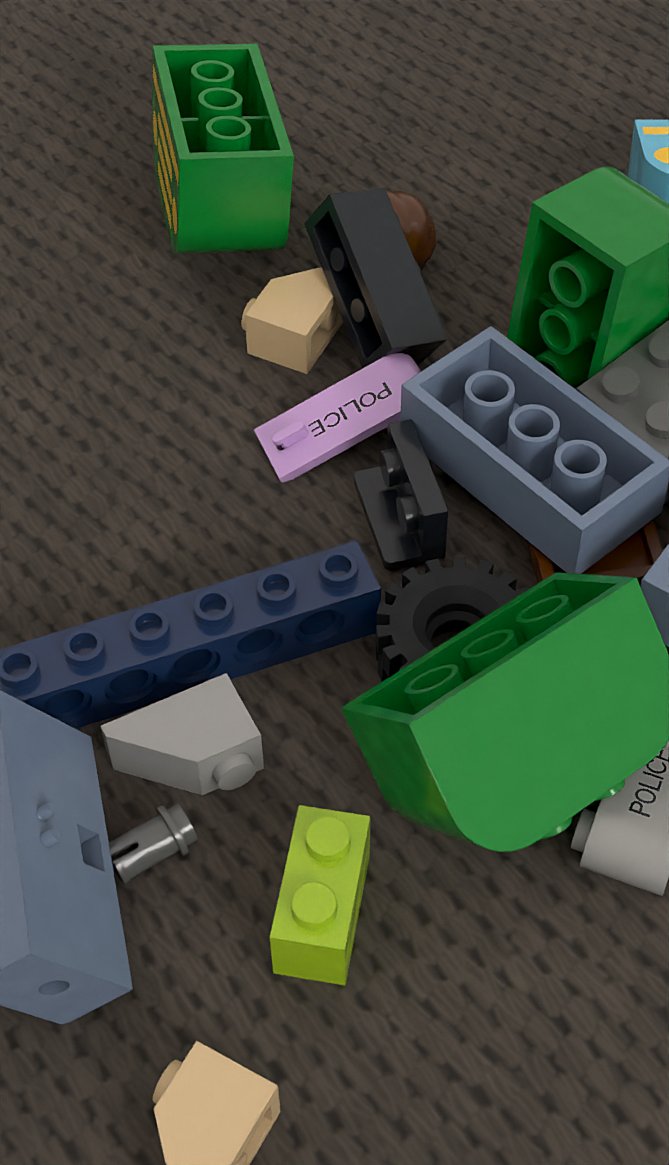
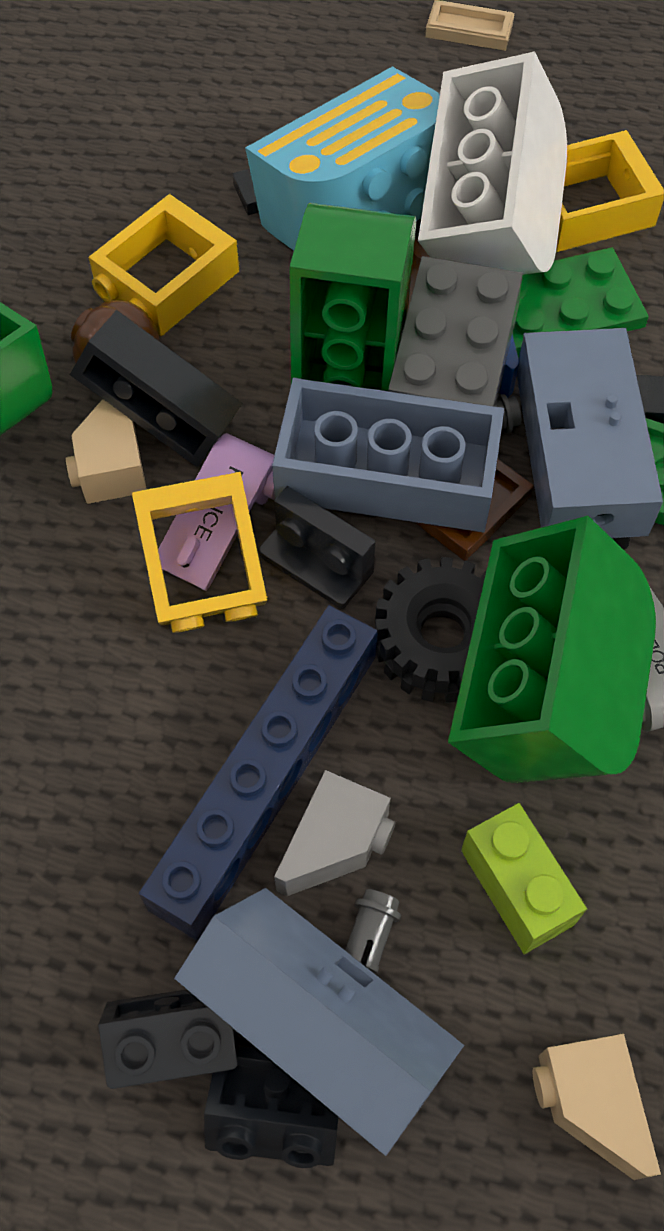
camera: 40 degrees left, 10 degrees up
(315, 379) = (188, 498): none -> yellow window
(477, 165) = (170, 220): none -> yellow window

